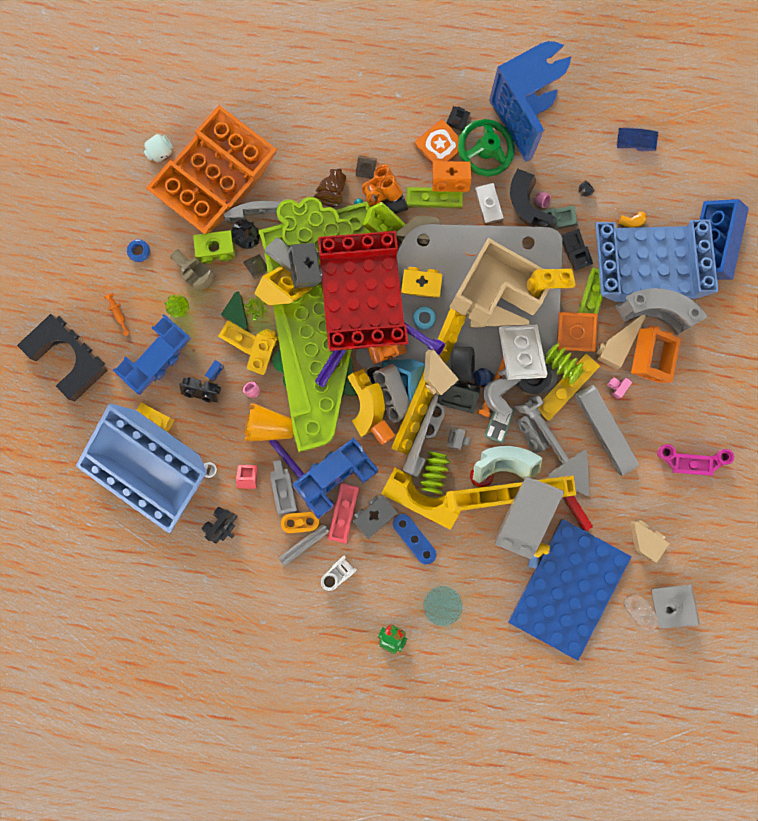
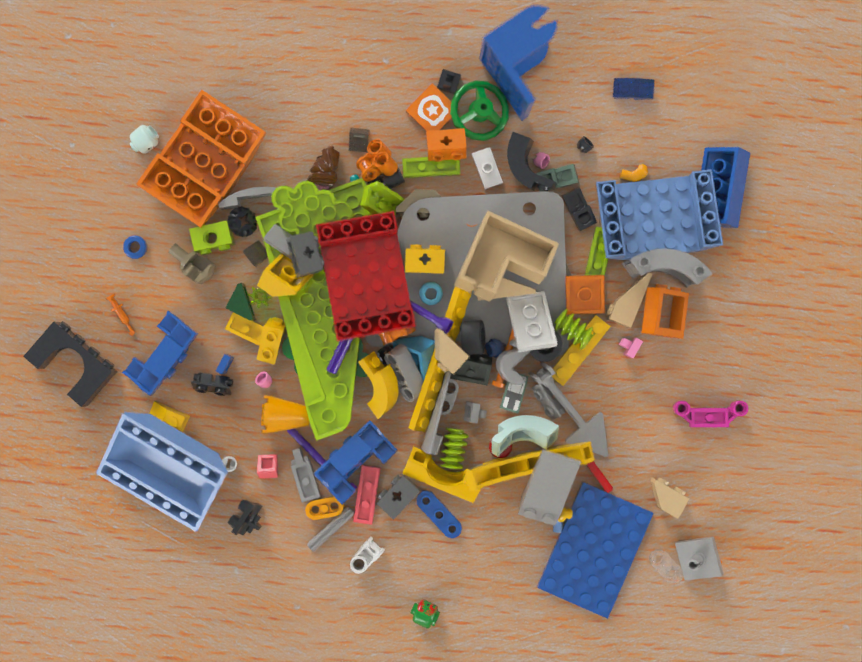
camera: 15 degrees left, 5 degrees up
(177, 305) = (180, 301): clear neon green gear -> none
(382, 432) = (398, 414): orange piece -> none
(442, 605) = (472, 576): clear light blue tile -> none
(549, 278) = (553, 248): yellow bracket -> none
(606, 430) = (621, 390): light grey beam -> none

